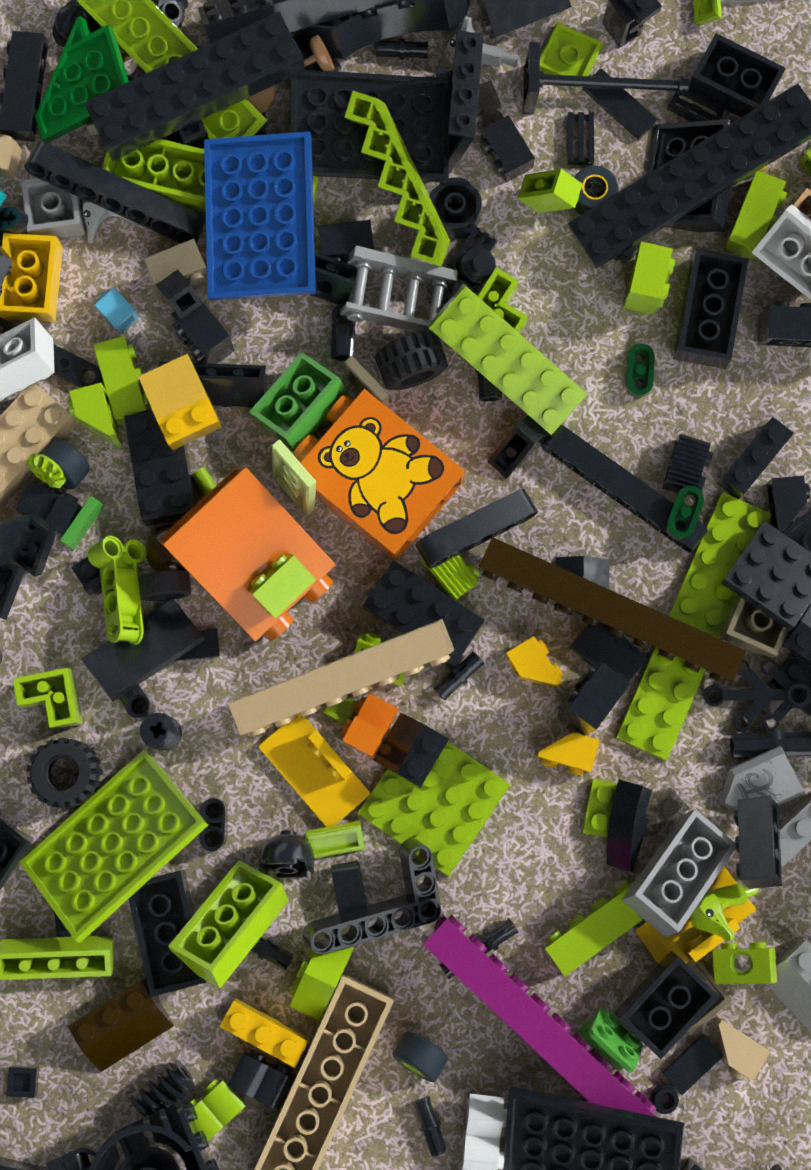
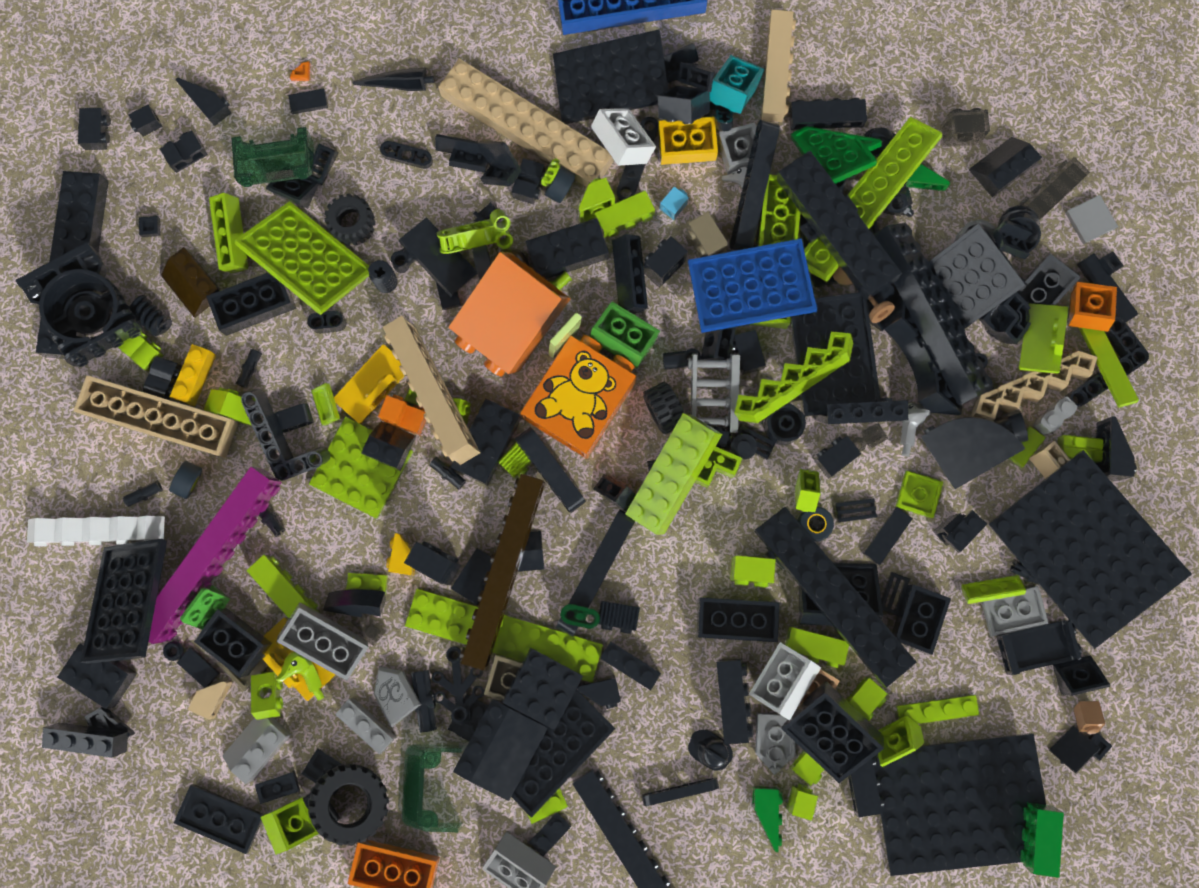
camera: 85 degrees right, 0 degrees up
(54, 689) = (402, 206): lime brick -> none
(82, 523) = (521, 204): bright green tile -> none
(179, 294) = (683, 238): black brick -> none
(179, 402) = (608, 251): yellow slope -> none
(229, 923) = (259, 340): lime slope -> none
(281, 584) = (485, 337): lime brick -> none
(287, 855) = (310, 372): black cylinder -> none
(363, 380) = (643, 379): dark tan tile -> none
(402, 49) = (902, 372): black pin -> none
(532, 664) = (460, 522): yellow slope -> none
(535, 79) = (892, 470): black tile -> none
(640, 371) = (685, 574): dark green plate -> none
(758, 842) = (348, 694): black brick -> none

